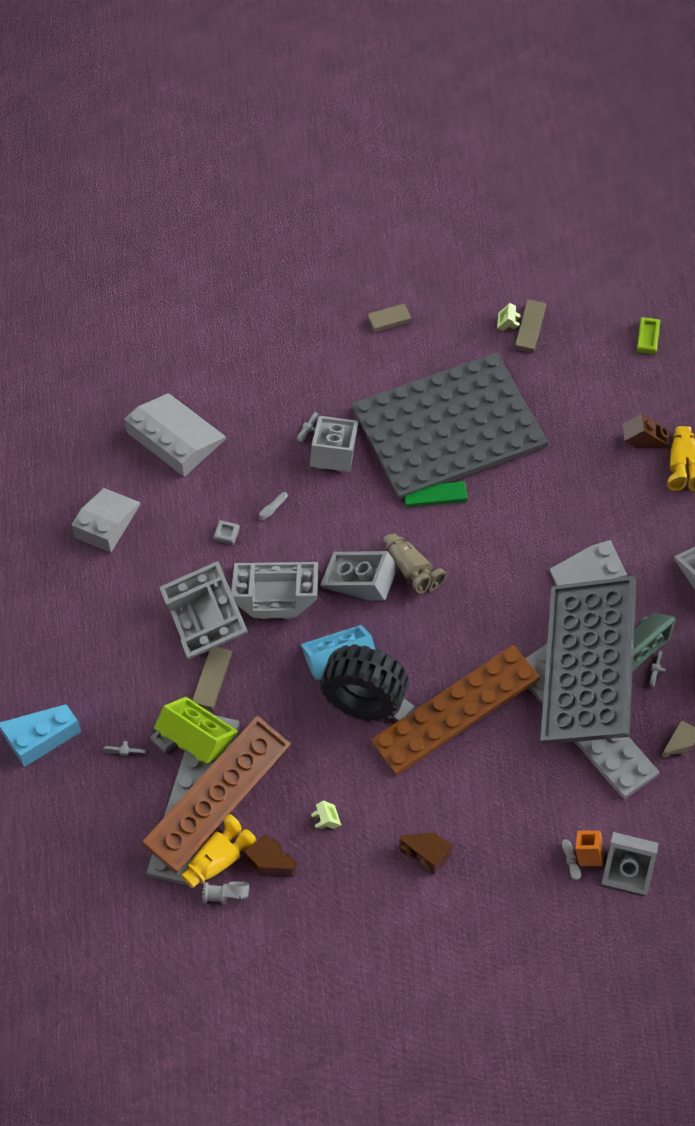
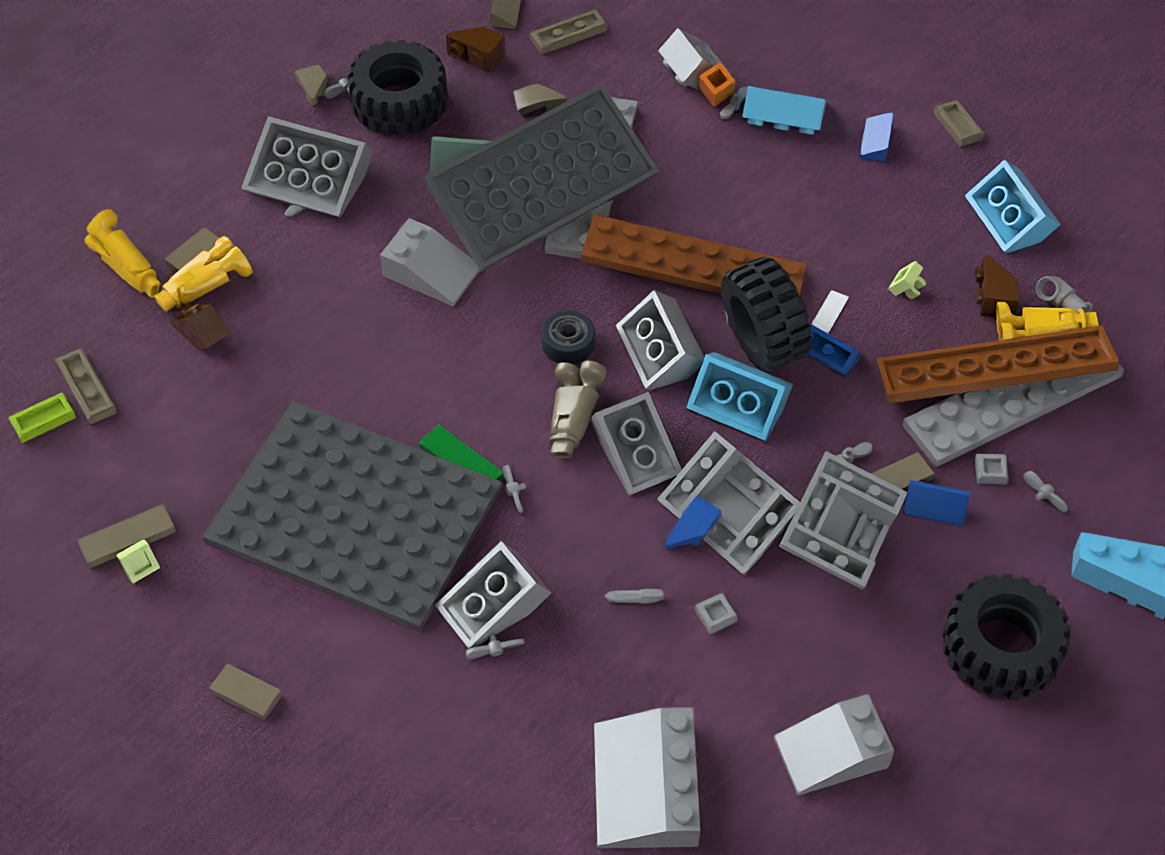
camera: 135 degrees left, 5 degrees down
(64, 610) = (1018, 604): none -> black tyre
(175, 687) = (936, 503): none -> blue slope
(195, 729) = (963, 428): lime slope -> none
(248, 674) = (859, 451): none -> light grey piece
(281, 559) = (693, 524): none -> blue slope
(316, 936) = (1012, 208): none -> medium azure slope
(324, 732) = (833, 351): none -> blue slope
(352, 760) = (829, 311): none -> white sticker
(391, 502) = (513, 488): none -> light grey piece
(414, 644) = (660, 341): none -> light grey slope
(421, 987) = (958, 123): none -> dark tan tile
(426, 848) = (848, 190): reddish brown slope -> none
(457, 918) = (877, 137): none -> slope
(462, 611) = (568, 337): none -> black wheel
(535, 880) = (784, 109): none -> medium azure slope
(653, 365) = (86, 386): none -> dark tan tile

